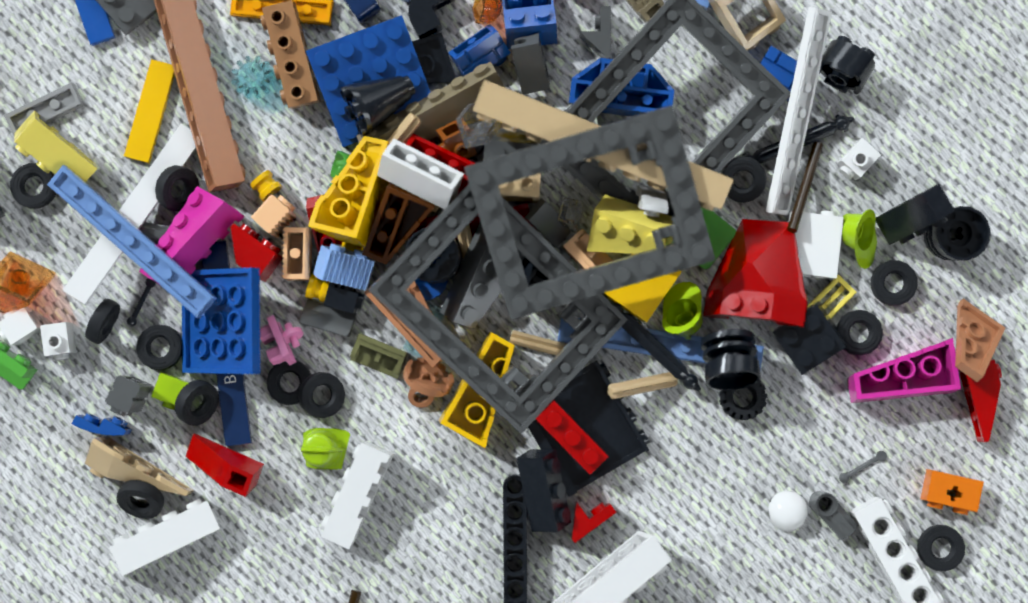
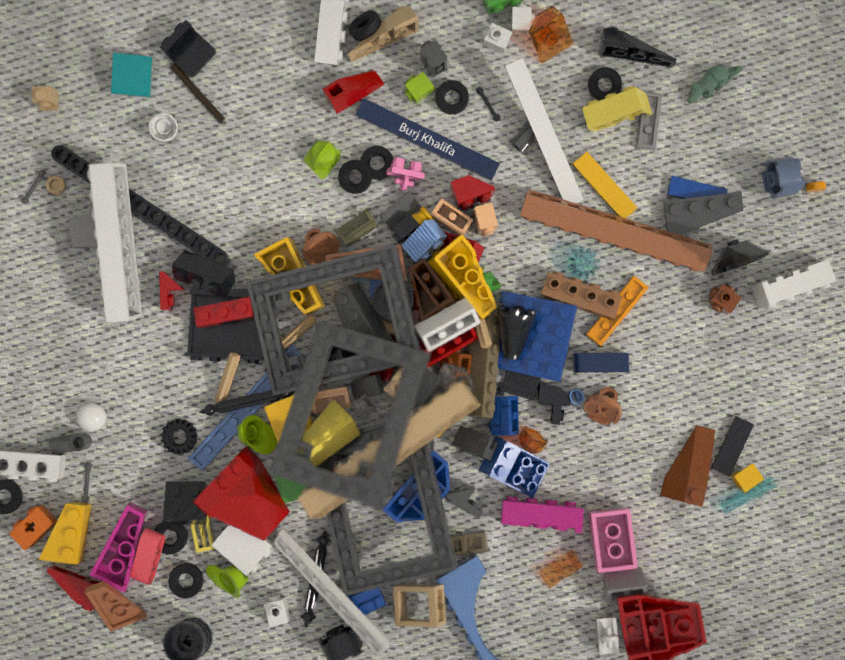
camera: 125 degrees right, 0 degrees up
(102, 321) = (490, 72): black tyre -> none
(107, 427) = (422, 35): blue slope -> none
(132, 241) = (525, 119): medium blue tile -> none
(165, 182) = (535, 175): black tyre -> none
(187, 396) = (408, 95): black tyre -> none
(196, 229) = (505, 157): dark pink wedge -> none
(229, 331) = (439, 143): blue plate -> none
(265, 185) = (509, 227): yellow wheel -> none
(356, 495) = (279, 158): white wedge -> none
(652, 200) = (332, 458): white slope -> none
(730, 359) = (205, 443): black wheel -> none
(755, 169) = (312, 541): black tyre -> none
(805, 187) = (281, 564): dark brown bar -> none
(896, 340) = (147, 556): none -> coral beam
(915, 215) = (215, 621): black brick -> none
(934, 443) = (69, 535): none -> yellow wedge

